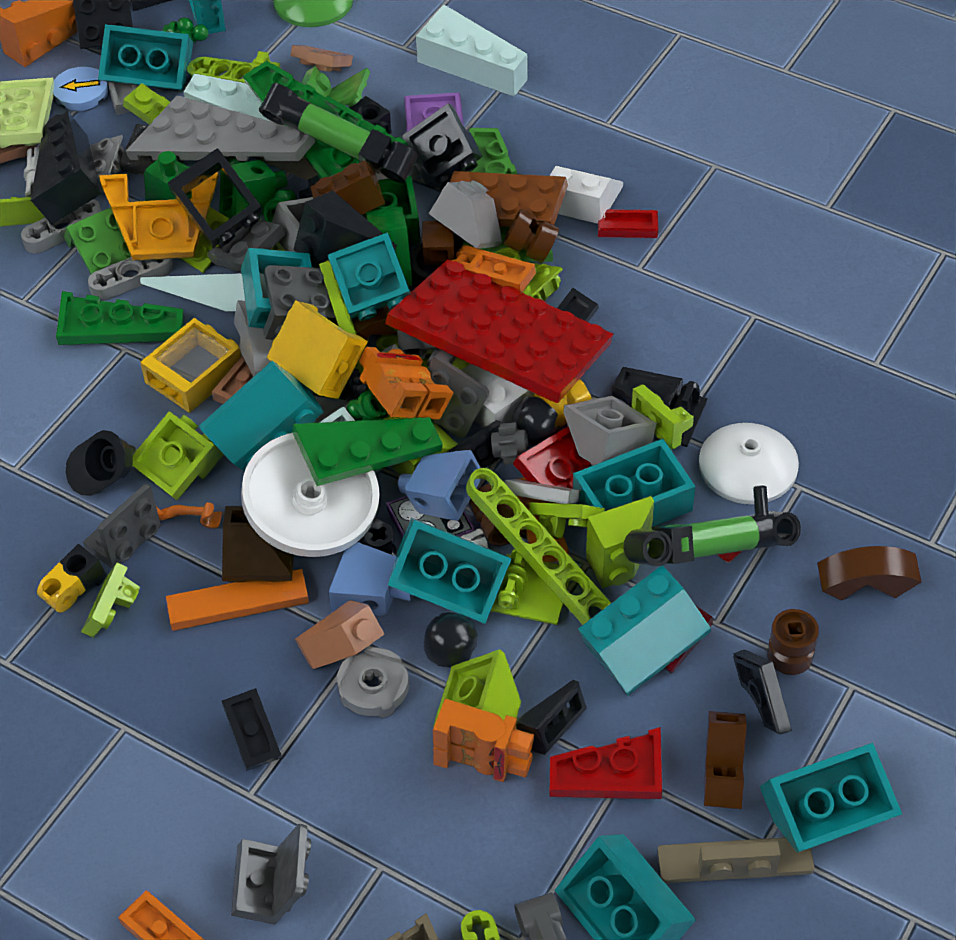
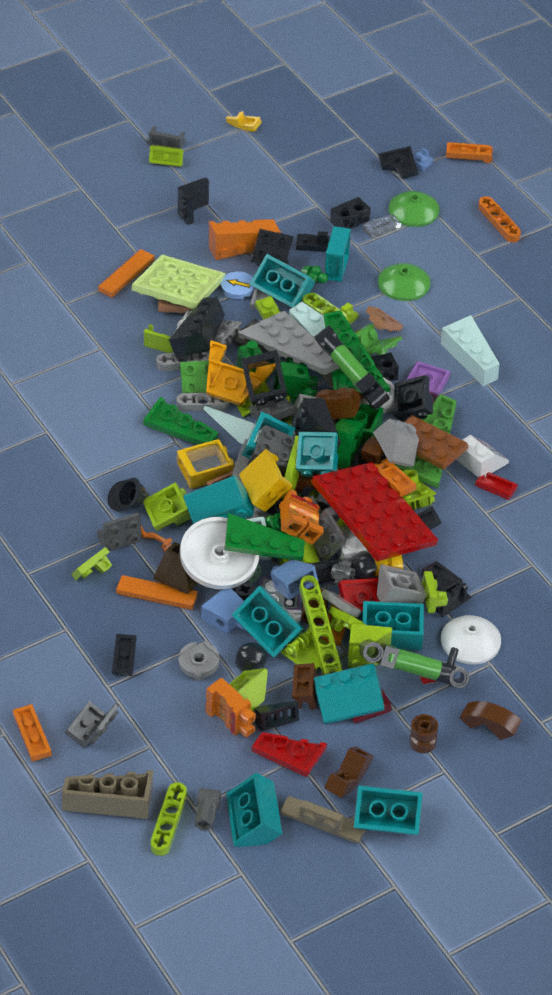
camera: 25 degrees right, 5 degrees down
(71, 578) = (79, 546): leg -> none
(340, 634) = (194, 629): nougat slope -> none
(531, 236) = (427, 468): reddish brown wheel -> none
(565, 645) = (304, 685): none -> reddish brown hinge
(761, 682) = (389, 753): black tile -> none

